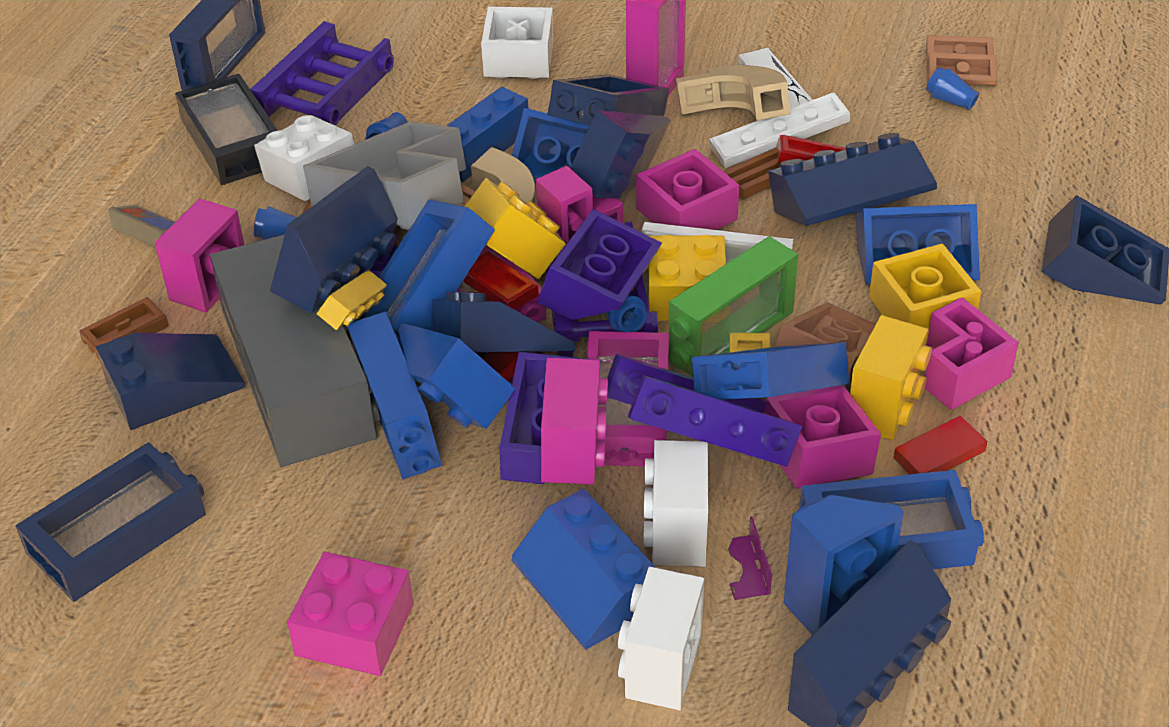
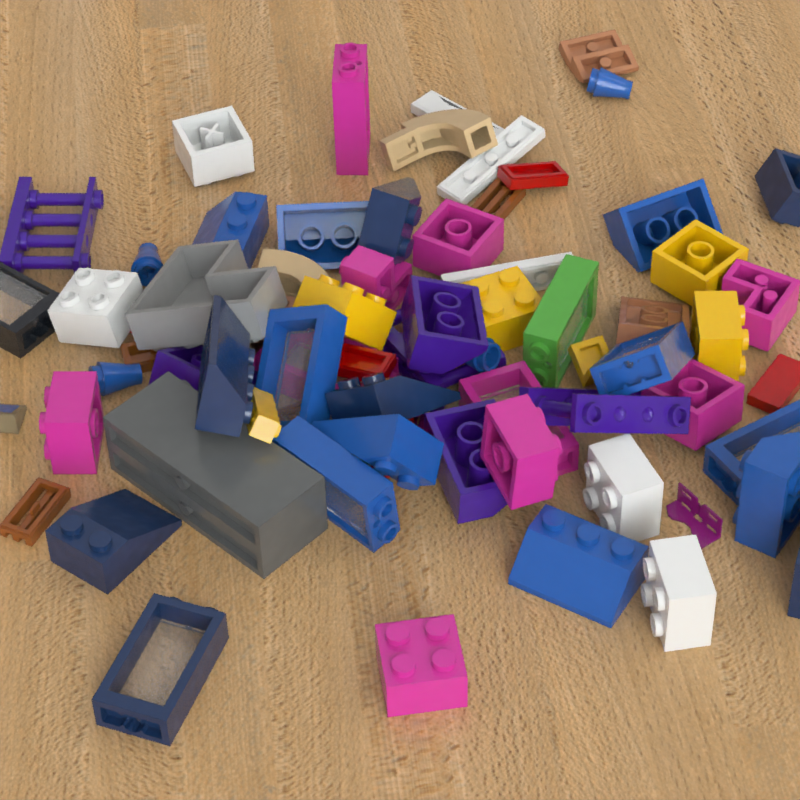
camera: 25 degrees left, 0 degrees up
(585, 95) = (341, 178): dark blue window -> none
(849, 179) = (582, 188): dark blue slope -> none

